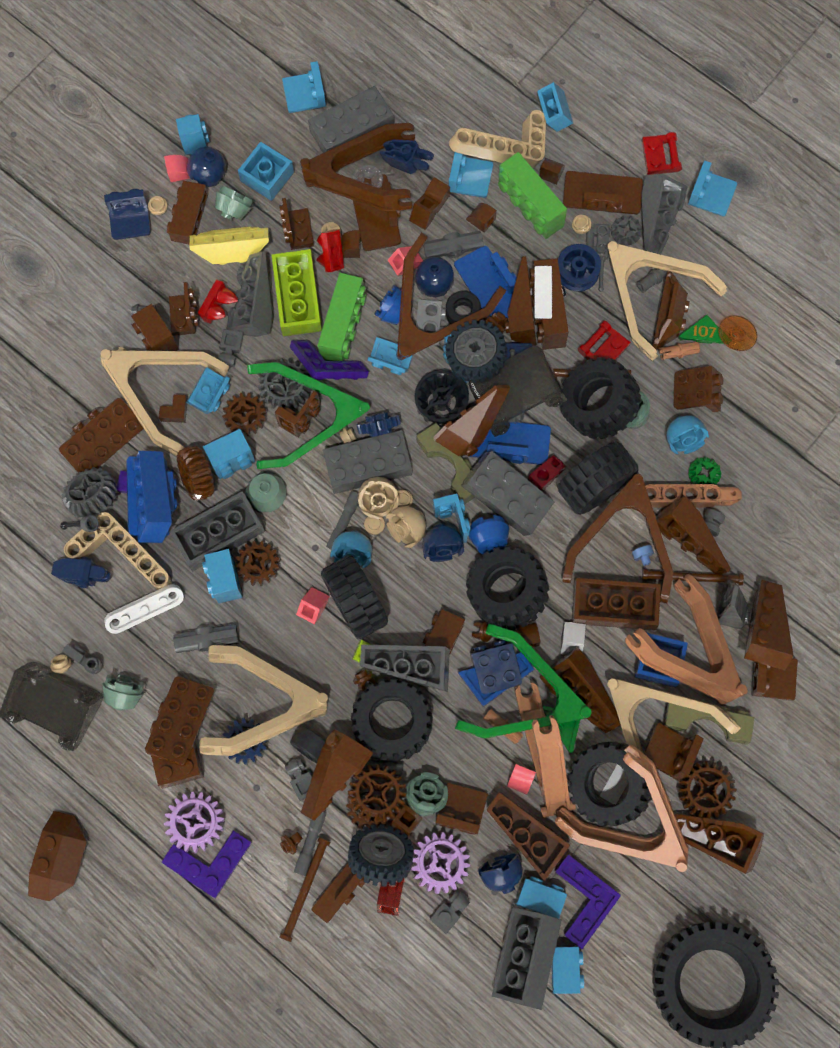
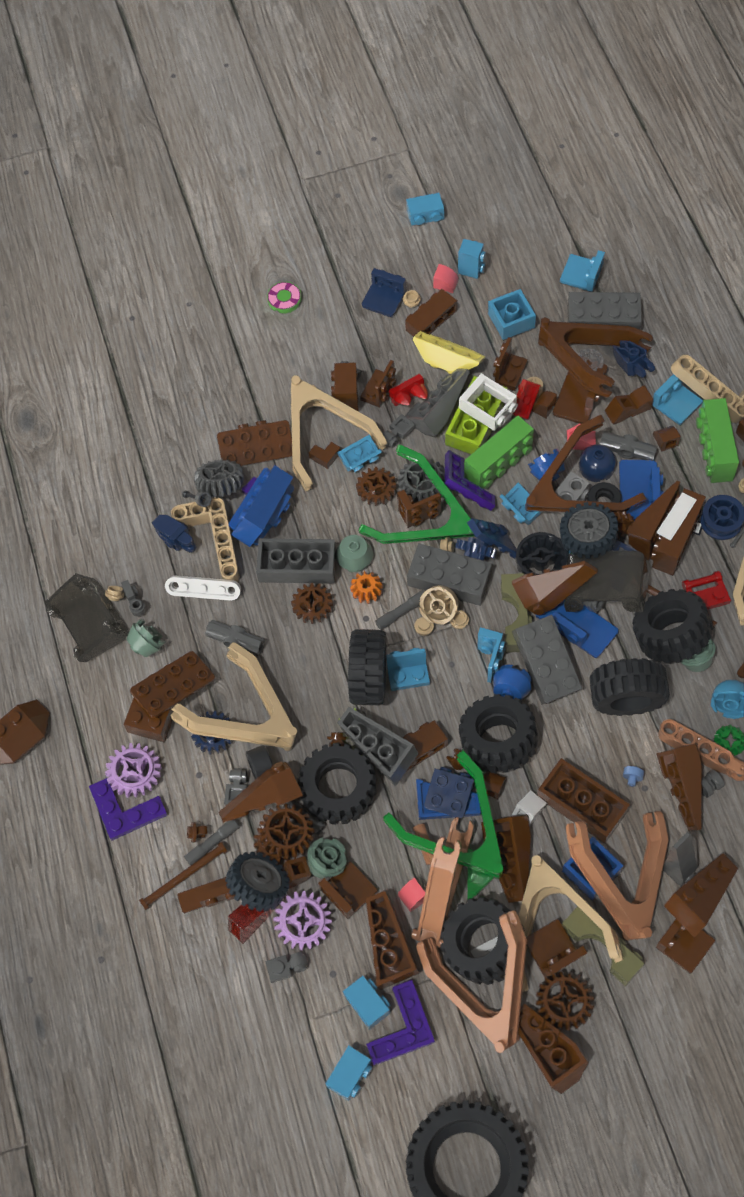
camera: 35 degrees right, 10 degrees down
(29, 270) = (284, 297): none -> tile
(112, 104) = (425, 209): none -> dark azure brick
(195, 473) = (307, 507): reddish brown gear -> none
(206, 166) = (467, 288): dark blue cylinder -> none
(223, 576) = (277, 596): dark azure brick -> none
(229, 454) = (343, 507): dark azure brick -> none
(232, 203) = (469, 324): sand green cone -> none
(303, 258) = (476, 388): none -> white window
(306, 518) = (359, 587): none -> orange gear
(312, 605) = (333, 659): coral brick -> none
(352, 544) = (397, 632): dark azure cylinder -> none
(387, 401) = (492, 534): none -> dark blue wing
(388, 575) = (407, 669): none -> dark azure bracket
(406, 525) = (449, 640): tan cylinder -> none
(442, 543) = (467, 670): dark blue cylinder -> none
(502, 873) = (346, 960): dark blue cylinder -> none
(526, 958) = (321, 1040): dark grey brick -> none
(547, 472) = (585, 664): dark red leg -> none
(633, 497) = (651, 720): reddish brown piece -> none
(701, 577) = (668, 820): reddish brown bar -> none

